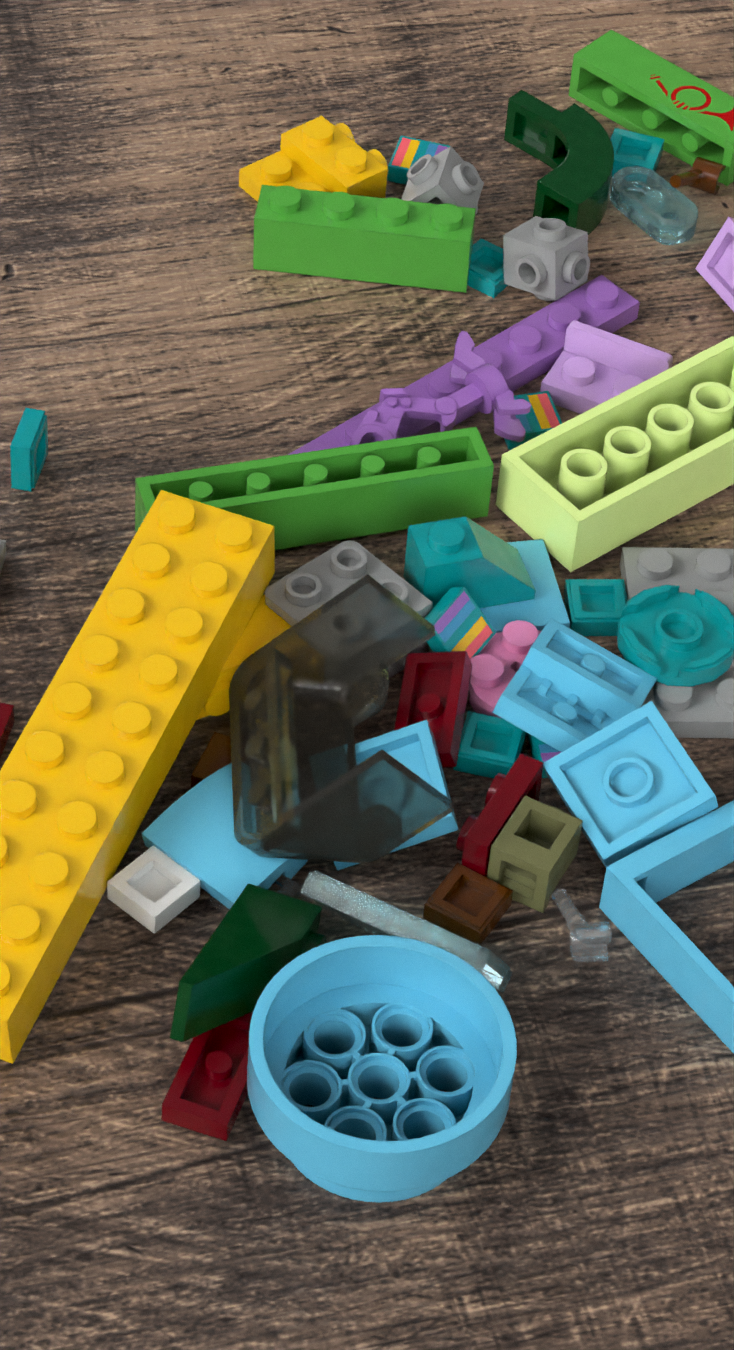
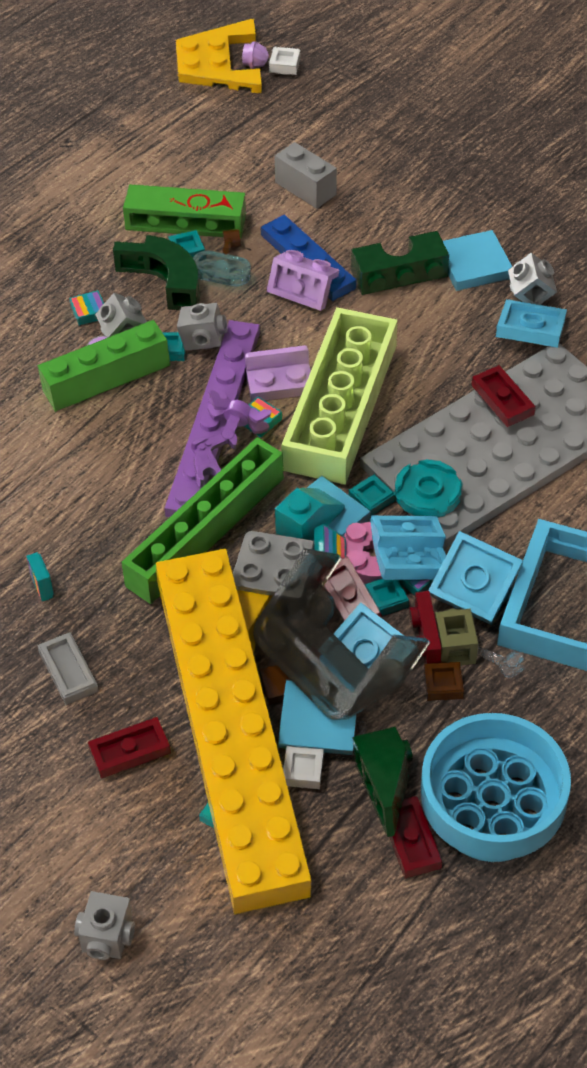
camera: 30 degrees left, 5 degrees up
(319, 159) = (44, 337): yellow plate -> none
(389, 920) = (440, 713): clear light blue tile -> none

